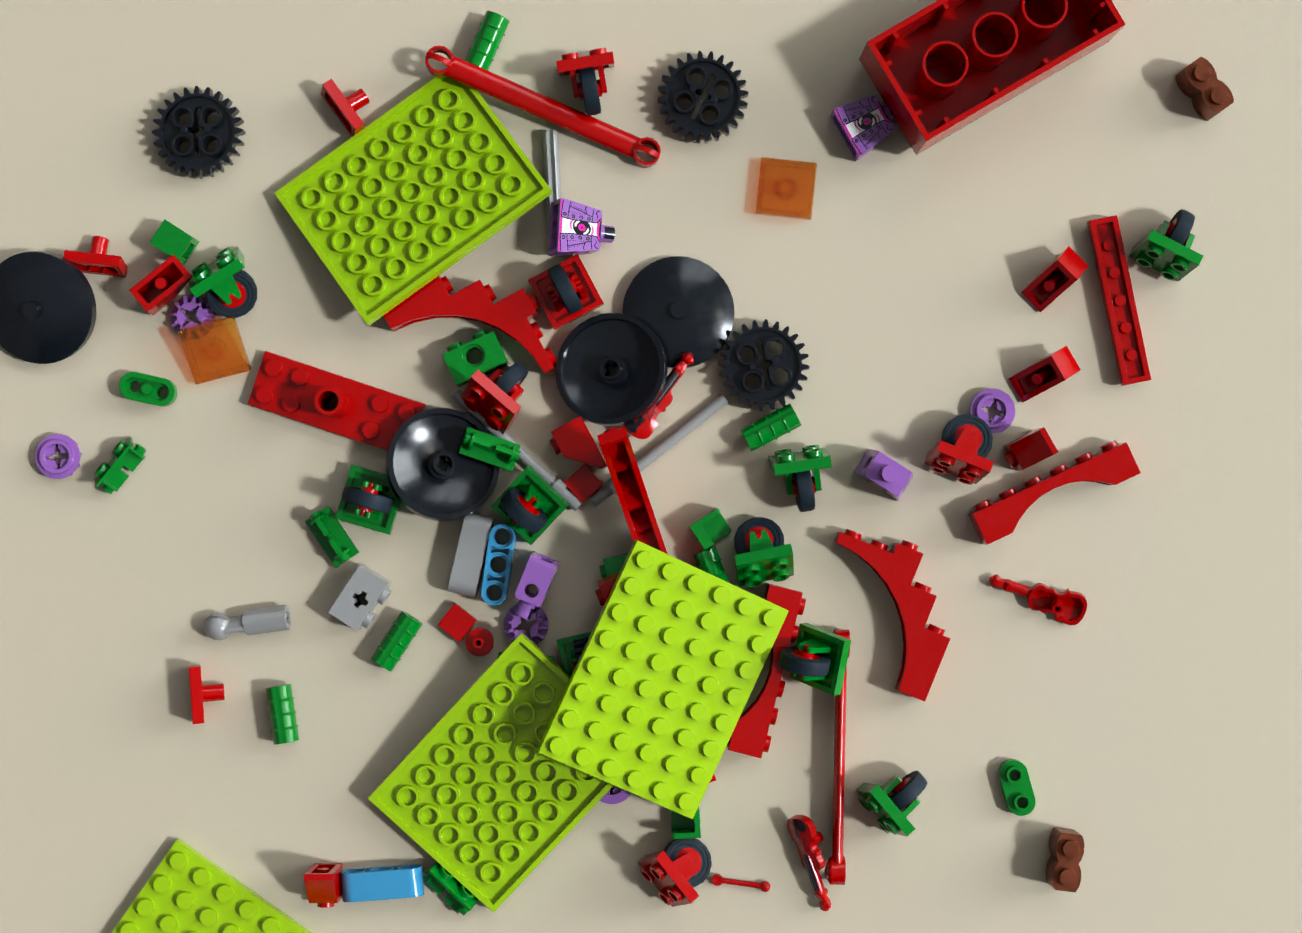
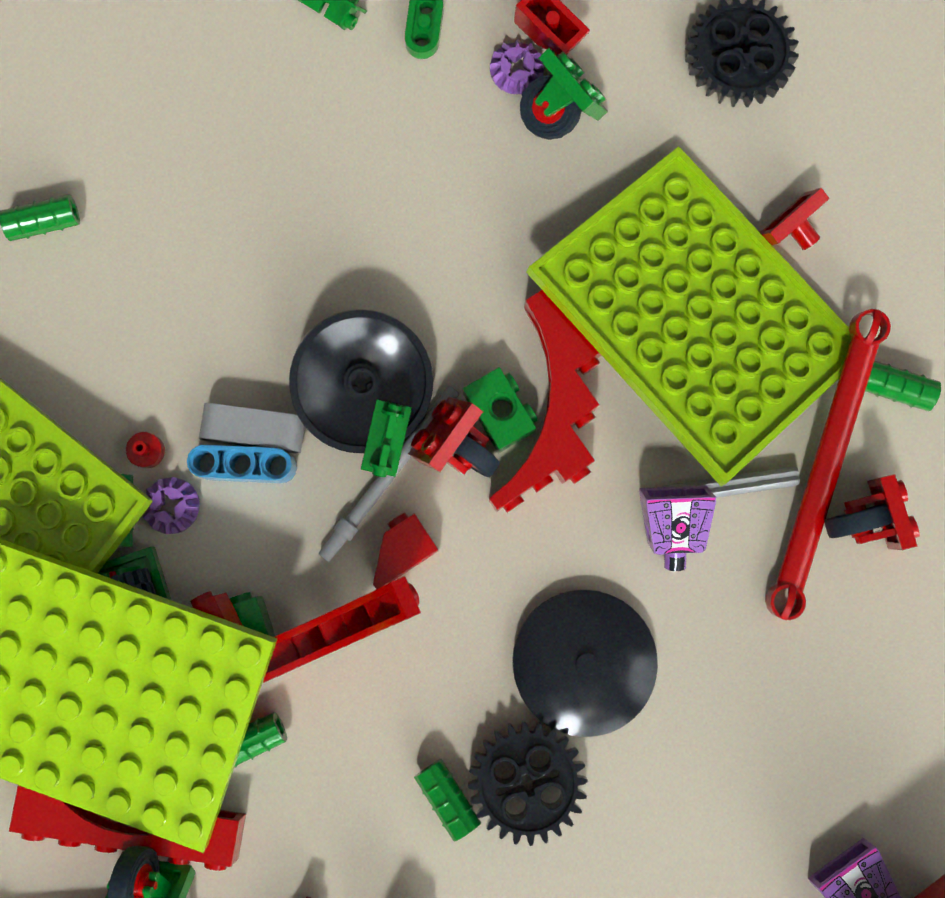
camera: 85 degrees right, 5 degrees down
(174, 241) = (605, 36): green panel -> none
(202, 693) = (59, 119): red tile -> none
(214, 349) = (479, 95): clear orange plate -> none
(251, 622) = (150, 168): light grey piece -> none
(304, 395) = (436, 207): red plate -> none
(331, 536) = (263, 257): green hinge -> none
(347, 607) = (173, 284): light grey brick -> none
(368, 500) = (309, 294): green plate -> none
(396, 641) = (137, 346): green axle -> none
(457, 622) = (167, 420): red tile -> none
(530, 505) = (319, 496): green plate -> none
(540, 572) = (228, 516): medium lavender torso -> none
(566, 292) = (595, 515): red plate -> none
(583, 483) = (354, 561): red tile -> none
(611, 369) = (501, 584): black dish -> none
(645, 425) = (442, 629): red piece -> none
(665, 445) = (413, 663): light grey bar -> none
(680, 87) = (857, 697): black gear -> none
(710, 528) = (309, 731): green panel -> none
(761, 553) = (285, 803): green plate -> none
(786, 188) = (761, 789): clear orange plate -> none
(800, 464) = (390, 850): green plate -> none

